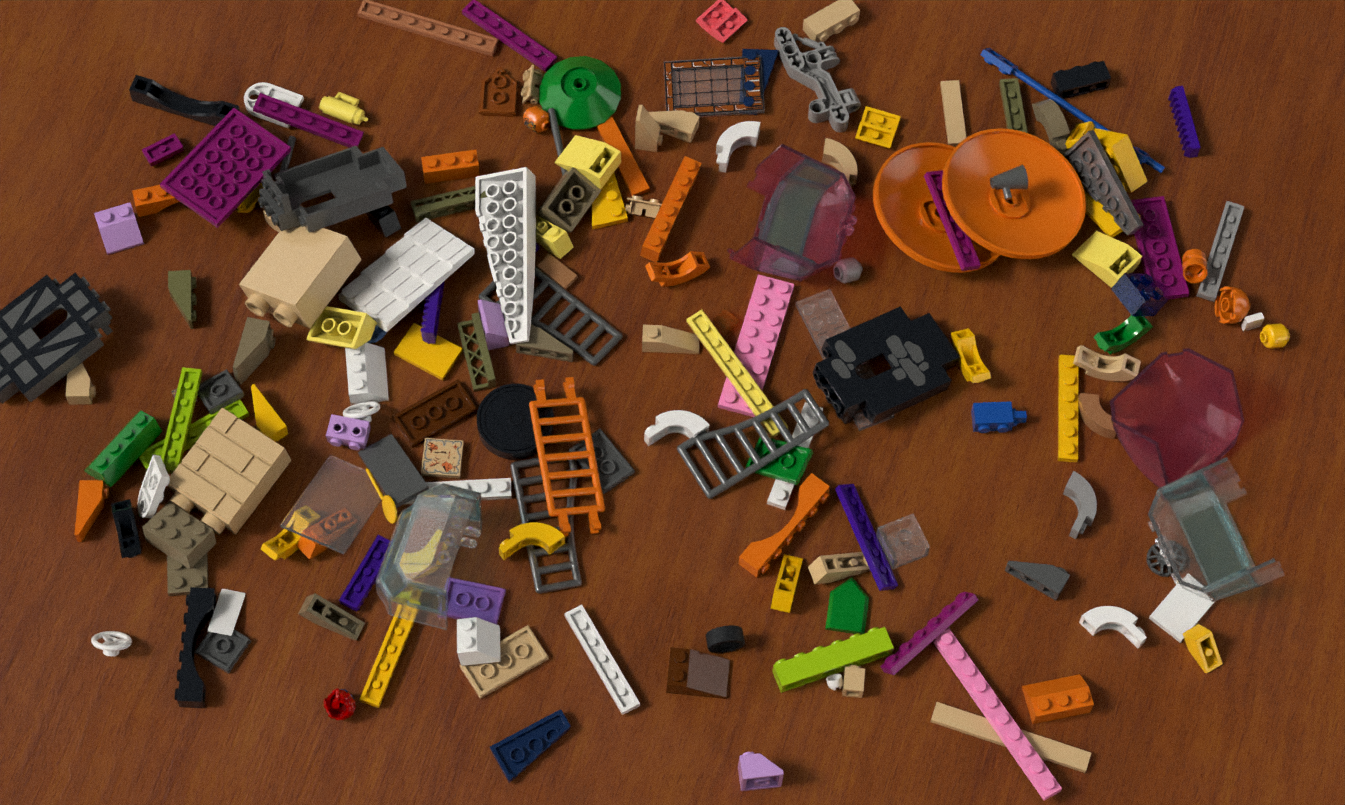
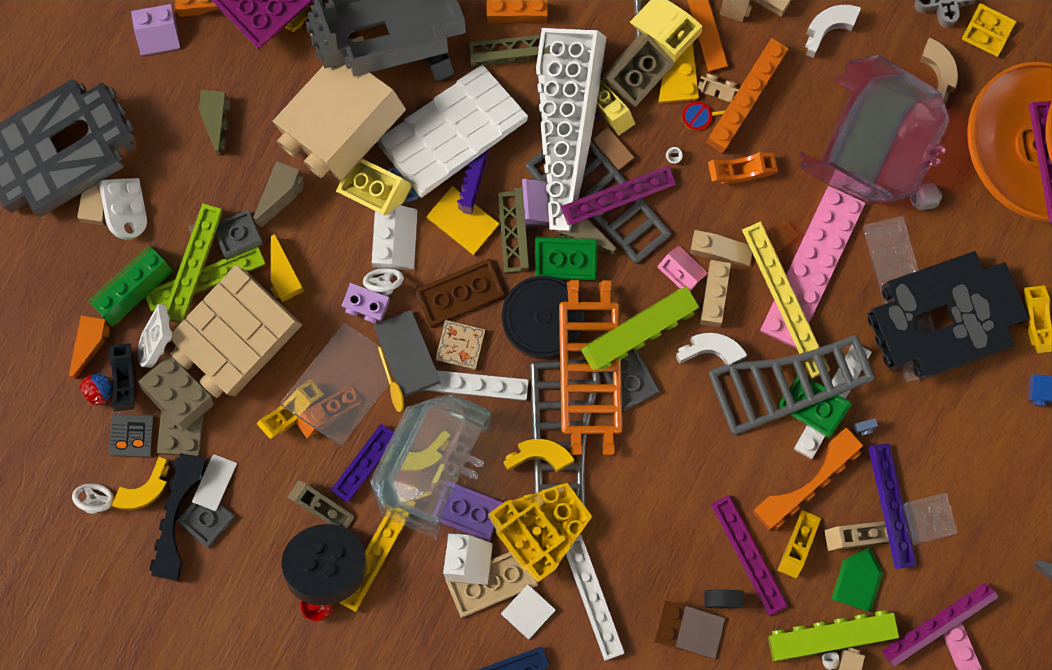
camera: 15 degrees right, 15 degrees up
(103, 543) = (96, 389): none -> piece
(108, 381) = (123, 205): none -> white plate
(141, 583) = (131, 435): none -> dark grey tile
(162, 632) = (148, 493): none -> yellow arch
(342, 664) = (324, 564): none -> black brick
(529, 365) = (566, 257): none -> green tile
(541, 601) = (540, 527): none -> yellow wedge
(542, 681) = (528, 611): none -> white piece
(567, 305) = (618, 195): none -> magenta plate
(606, 414) = (640, 328): none -> lime brick
(611, 265) = (674, 159): none -> white hinge
(630, 234) = (698, 115): none -> piece
(637, 364) = (682, 268): none -> bright pink panel
(671, 378) = (715, 293): none -> tan brick
(742, 601) = (749, 555): none -> magenta tile
(829, 472) = (865, 427): none -> sand blue plate

